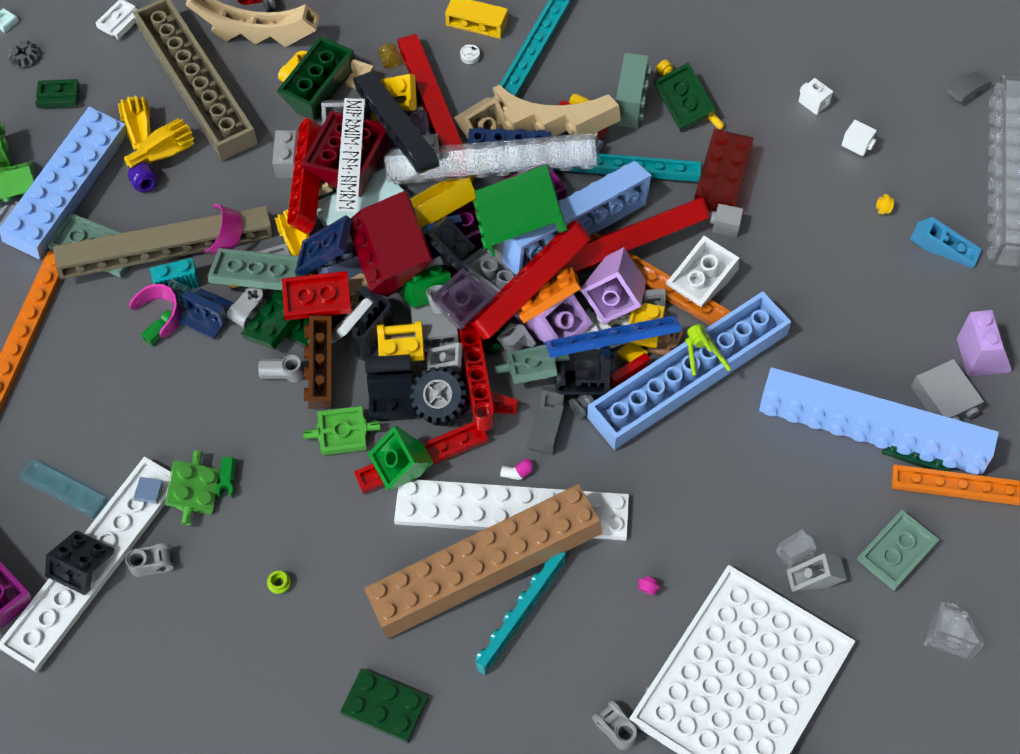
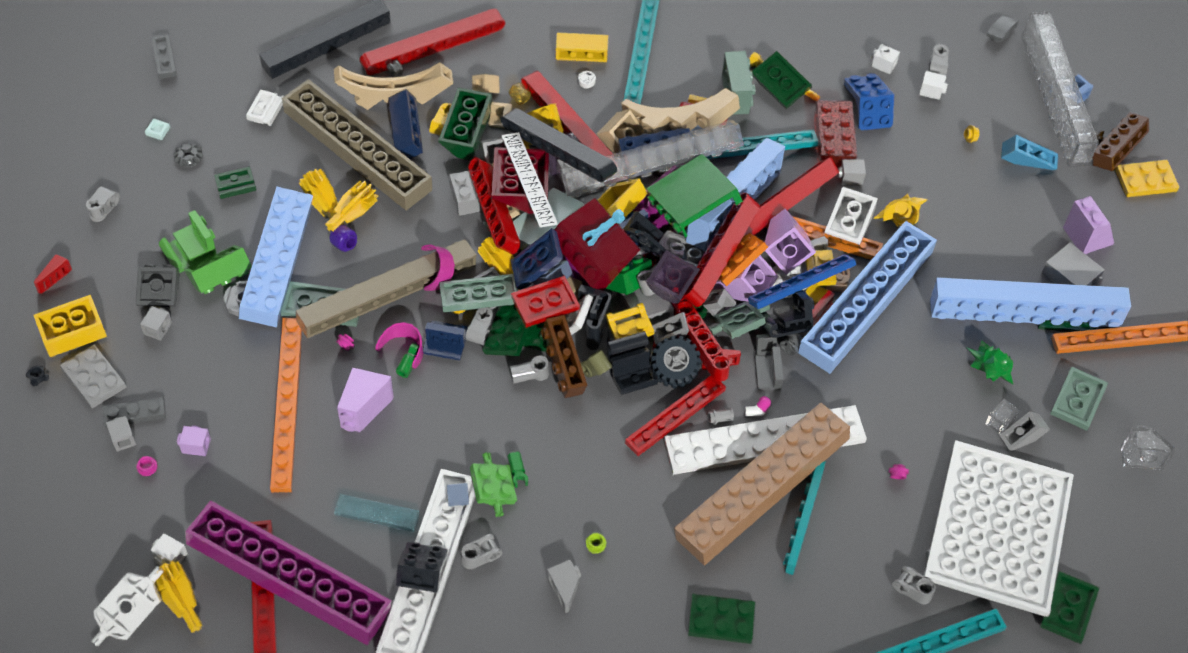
camera: 20 degrees left, 5 degrees down
(89, 360) = (363, 399): none -> lavender slope
(101, 291) = (345, 341): none -> dark pink plate
(180, 288) = (419, 324): clear light blue arm -> none
(181, 270) = (411, 311): teal brick -> none
(226, 620) = (564, 582): none -> light grey slope
(253, 66) = (405, 124): none -> dark blue brick
(341, 430) = (601, 409): bright green plate -> none
(352, 378) = (596, 364): none -> olive piece
(357, 38) = (485, 83): none -> tan panel
(399, 458) = (662, 418): green slope -> none
(418, 218) = (617, 217): none -> medium azure piece
(470, 469) = (720, 416): none -> light grey pin
(700, 338) = (871, 267): lime plant -> none
(767, 278) = (902, 210): none -> yellow hair
(779, 142) = (873, 101): none -> blue bracket
(807, 482) = (992, 362): none -> green hair
(877, 110) = (939, 60): none -> light grey piece

